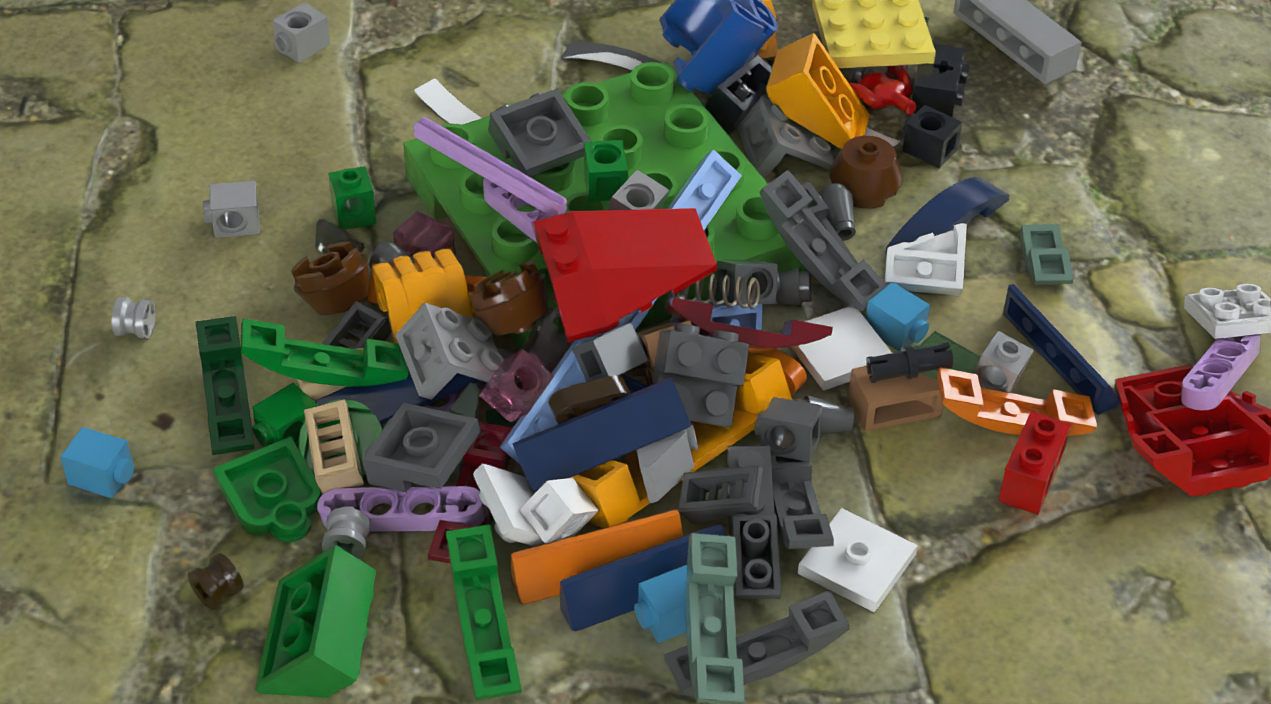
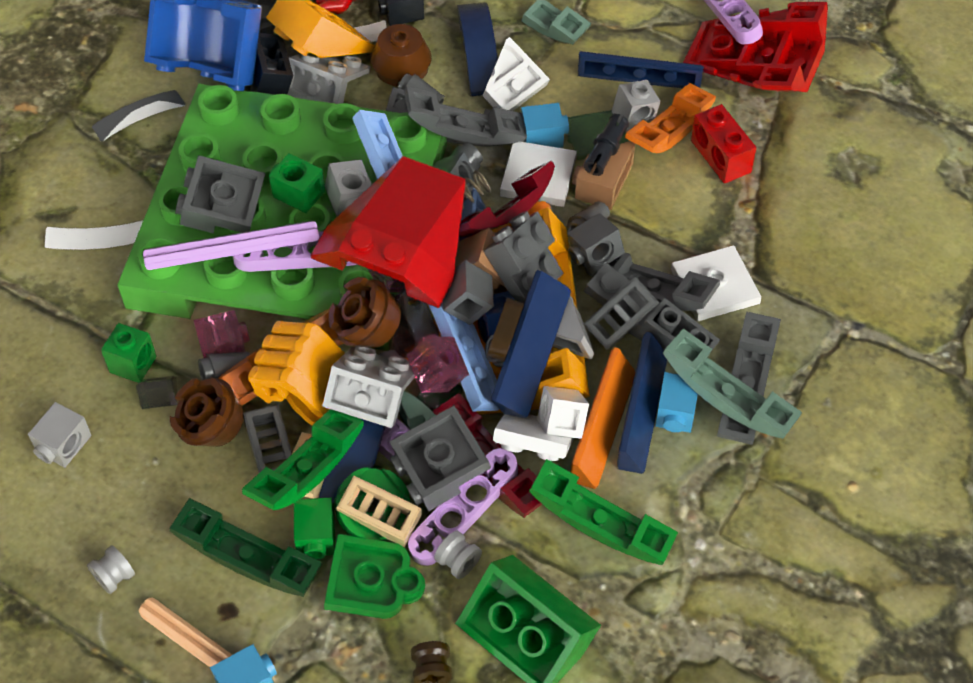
camera: 50 degrees left, 10 degrees up
(115, 396) = (182, 632): none -> light nougat axle

